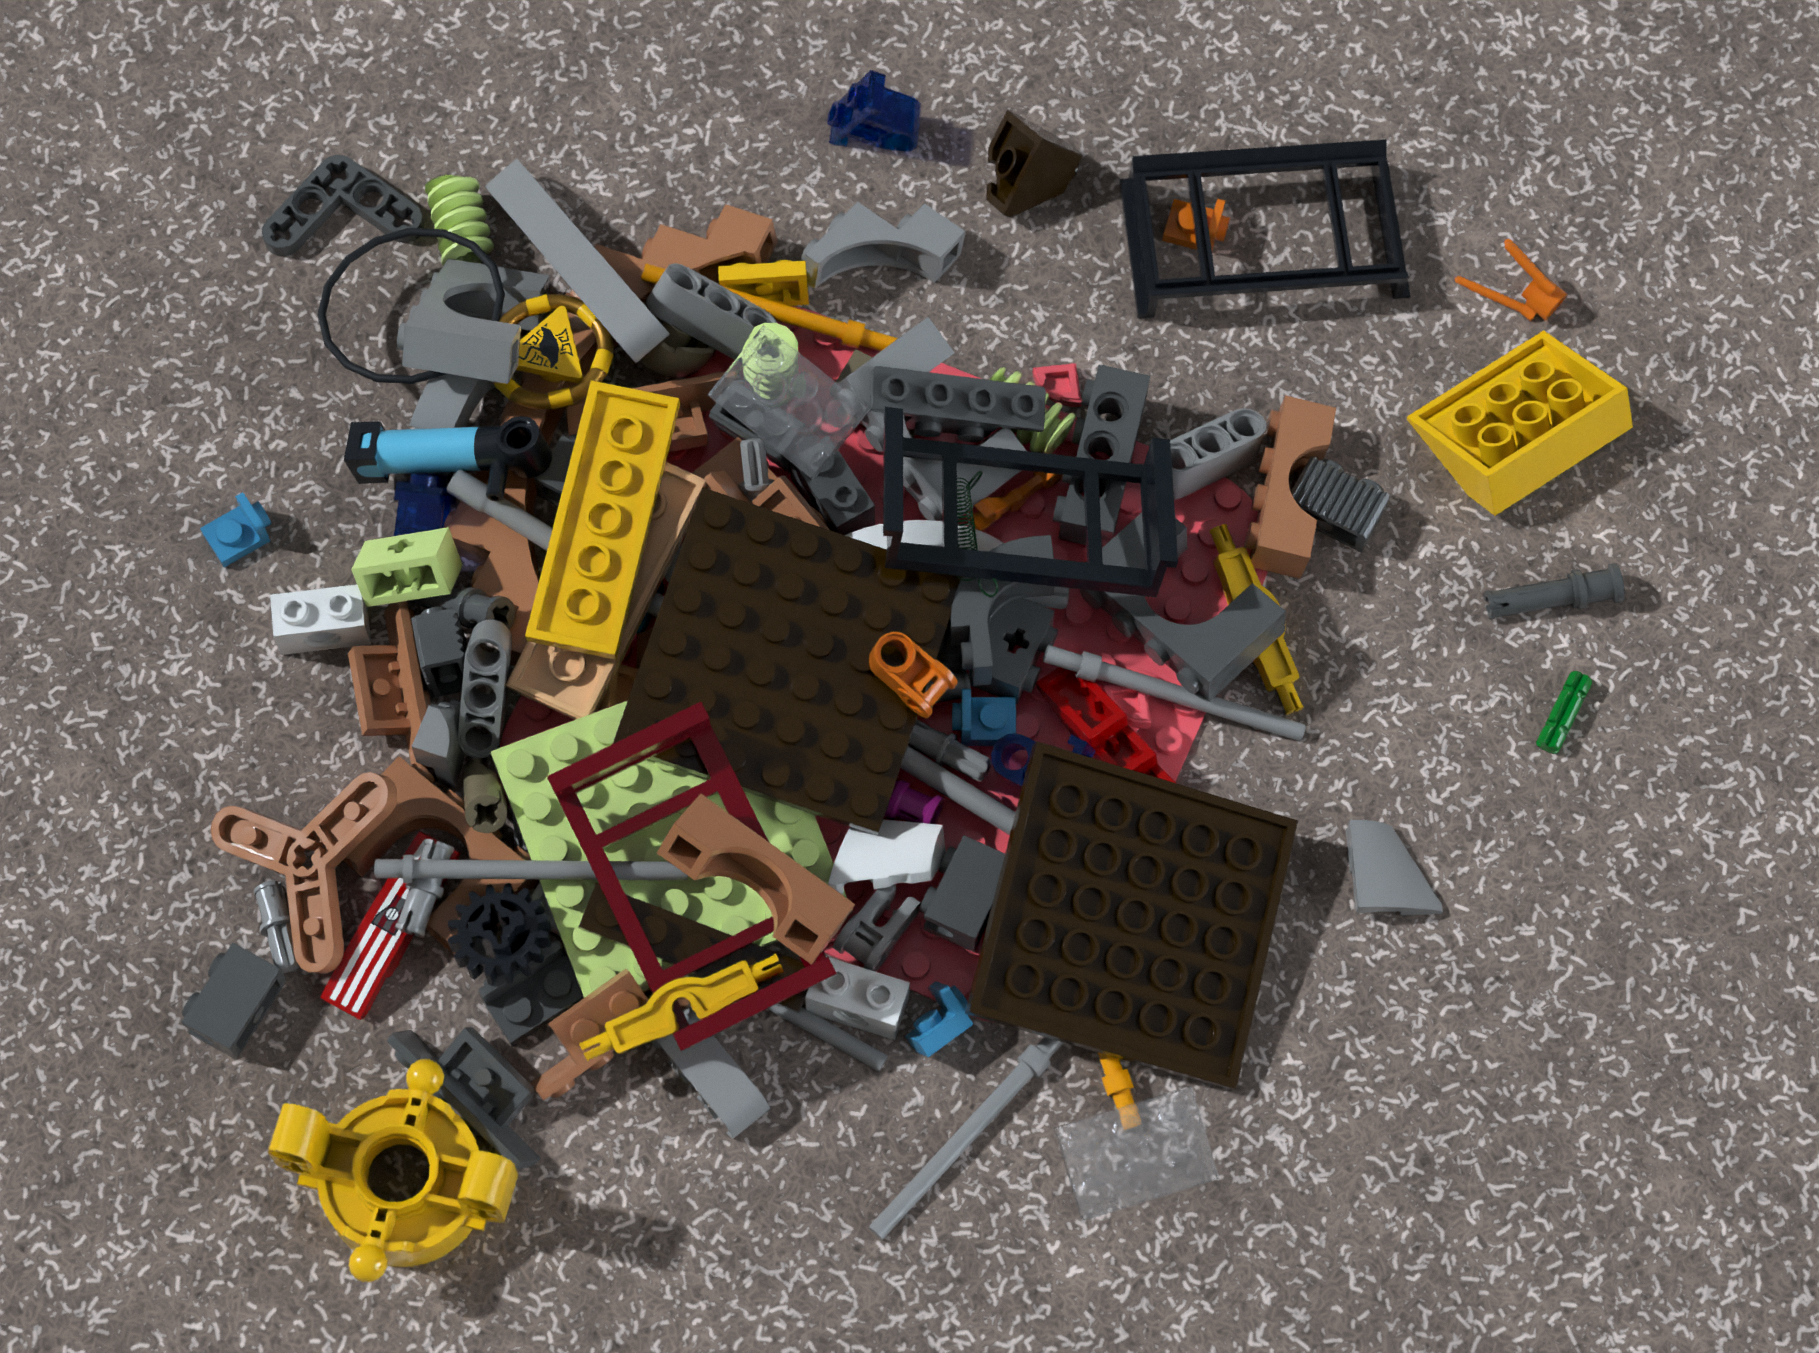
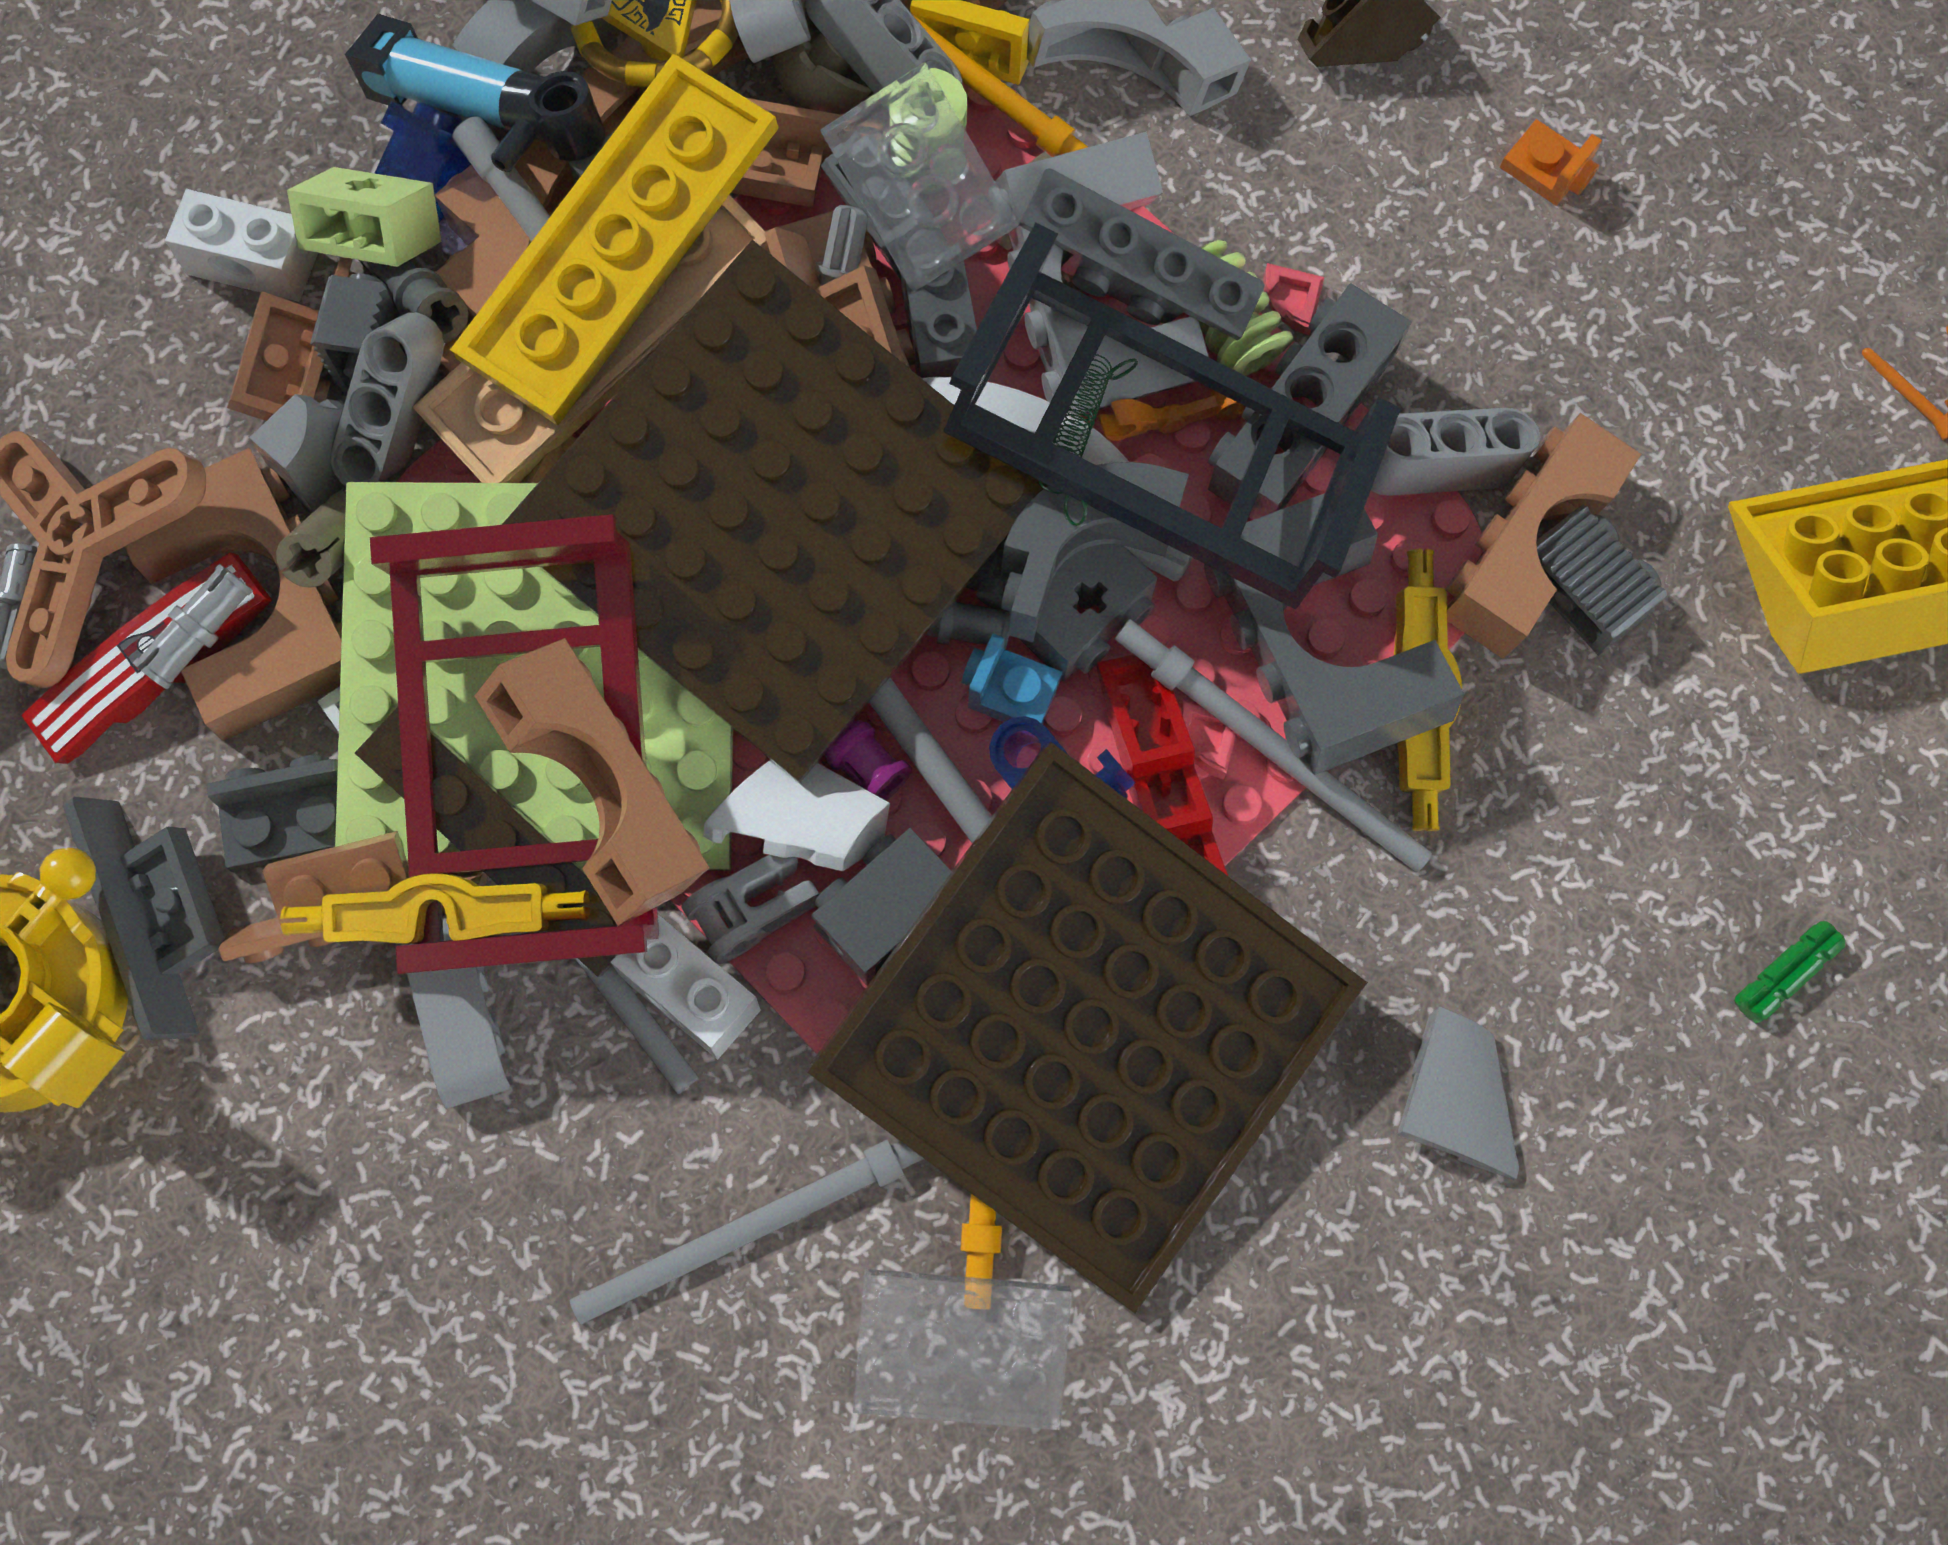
camera: 20 degrees right, 5 degrees up
(238, 531) = (203, 105): dark azure bracket -> none
(411, 868) = (173, 593): light grey bar -> none
(521, 937) = (257, 722): black gear -> none
(913, 674) = (922, 588): orange piece -> none
(940, 1027) = (776, 1070): dark azure bracket -> none
(949, 751) = (942, 706): light grey axle -> none
(1254, 161) = (1666, 104): black piece -> none
(1575, 589) = (1869, 813): dark grey pin -> none

